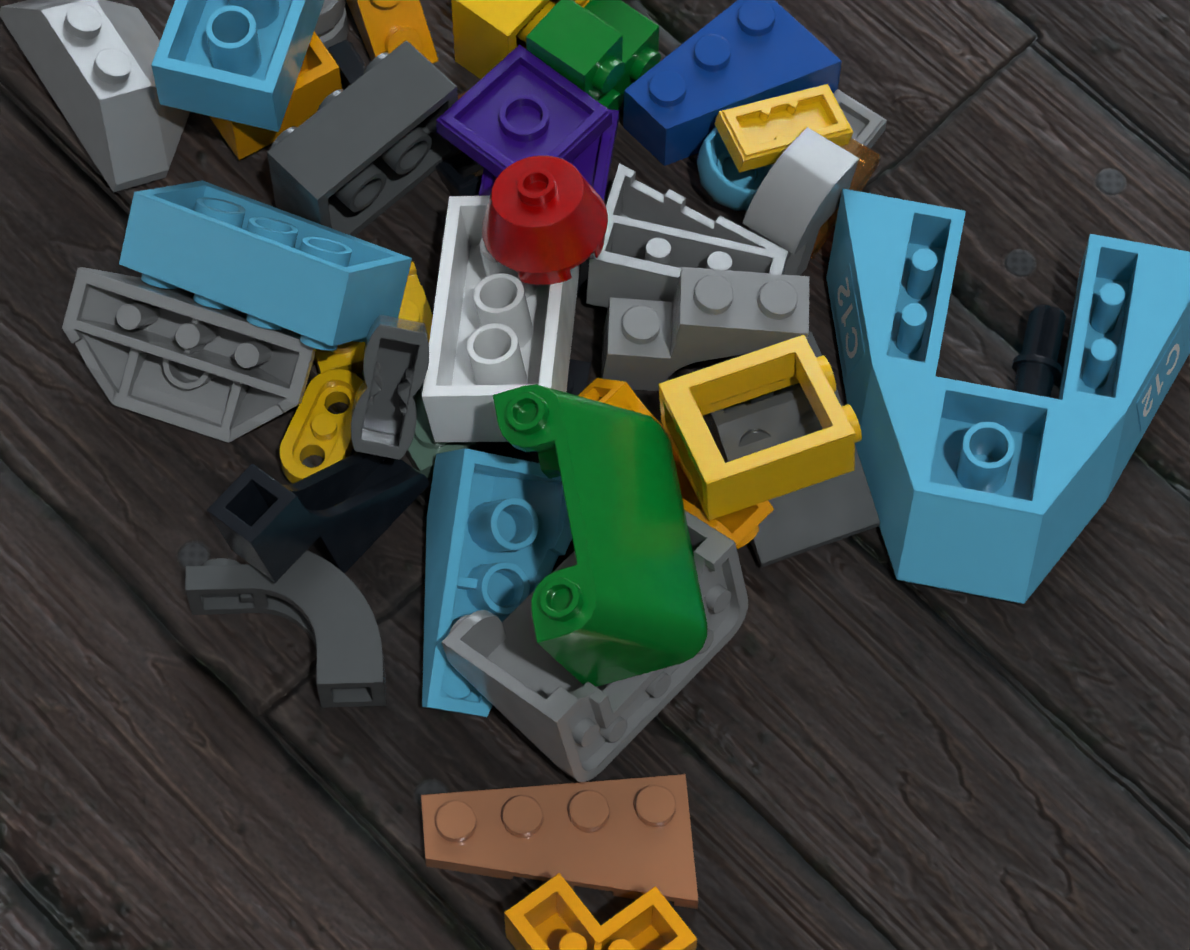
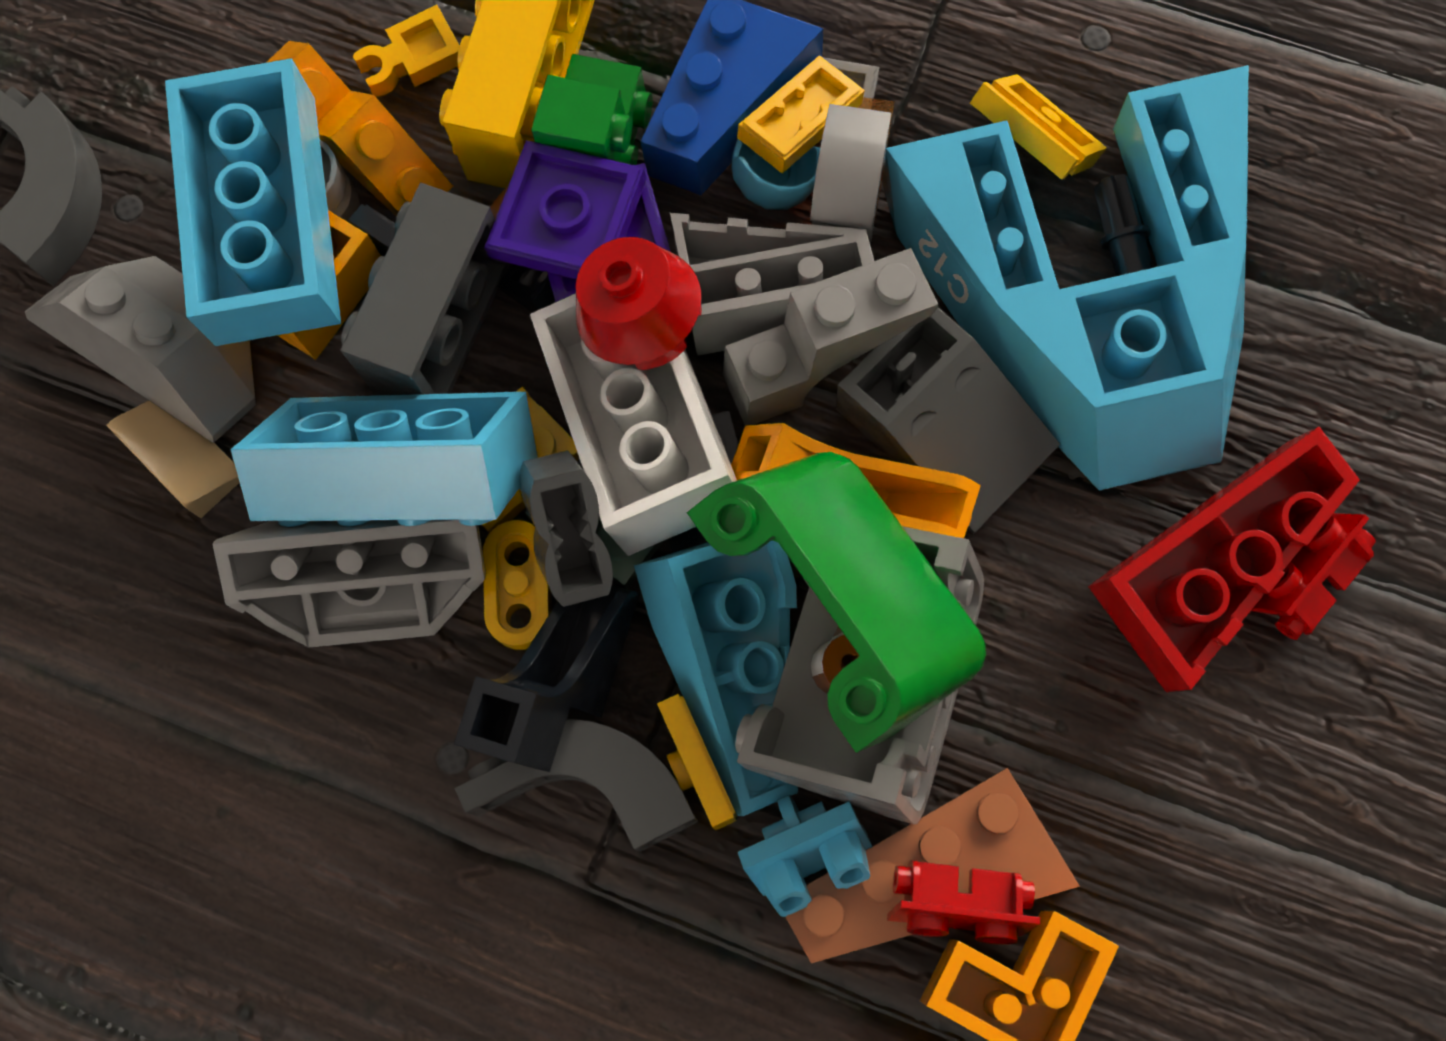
camera: 15 degrees left, 10 degrees up
(76, 191) = (177, 456): none -> tan slope
(405, 645) = (693, 763): none -> yellow plate
(467, 758) = (802, 846): none -> medium azure hips
(553, 844) = (989, 908): none -> red hinge
(772, 471) = (891, 466): yellow window -> none
(963, 674) = (1209, 569): none -> red wedge
(1004, 233) = (1038, 125): none -> yellow plate
(1032, 740) = (1333, 554): none -> red hinge

